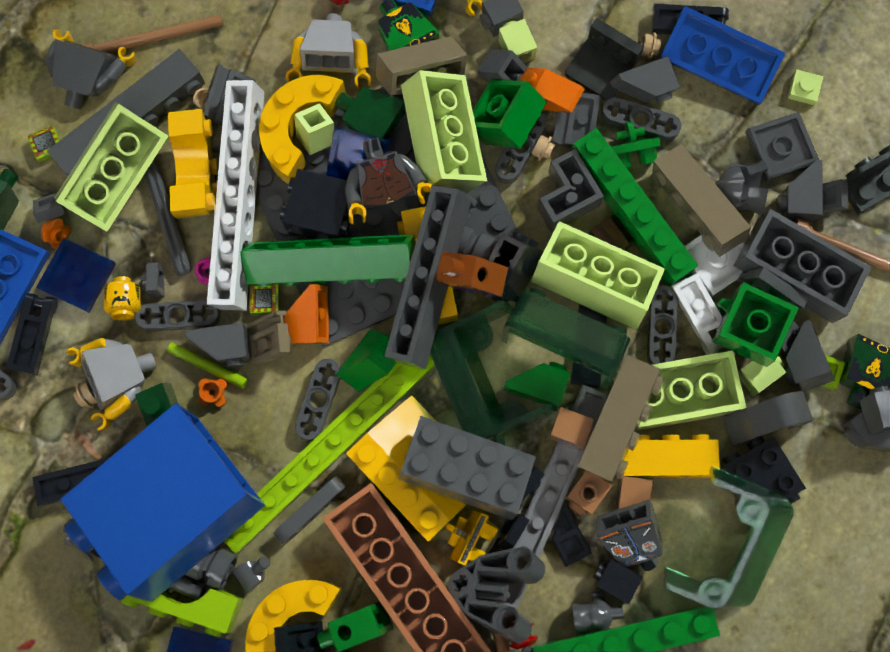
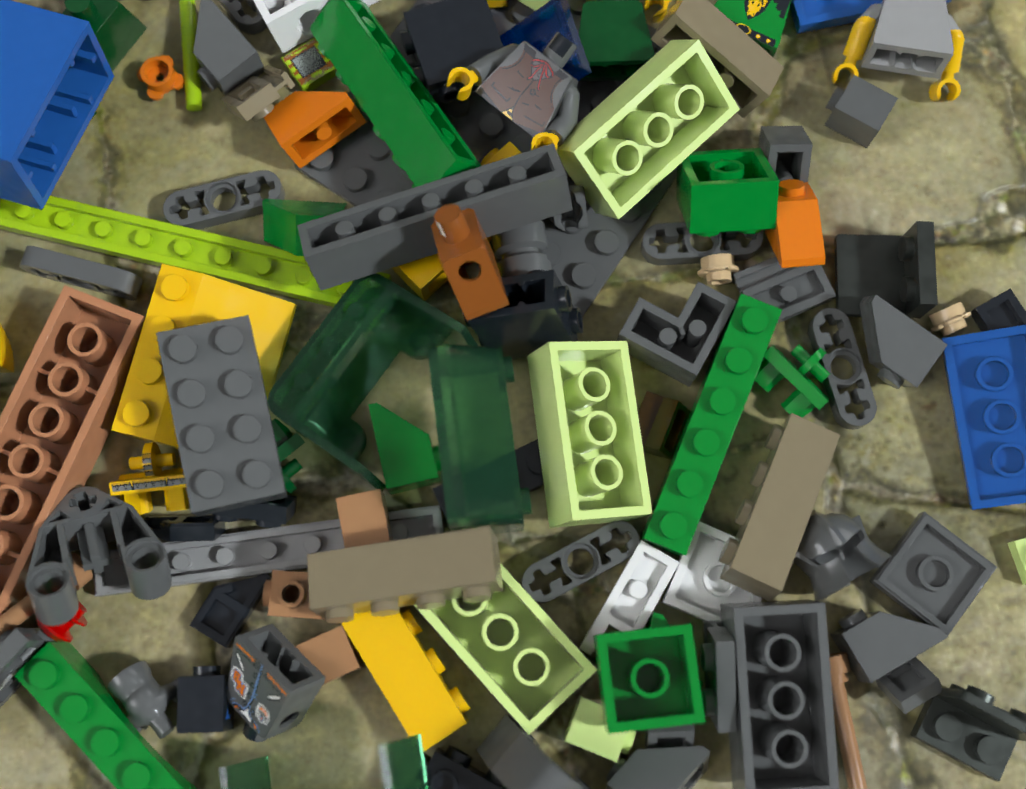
camera: 55 degrees right, 0 degrees up
(518, 38) = (835, 152): yellowish green brick -> none

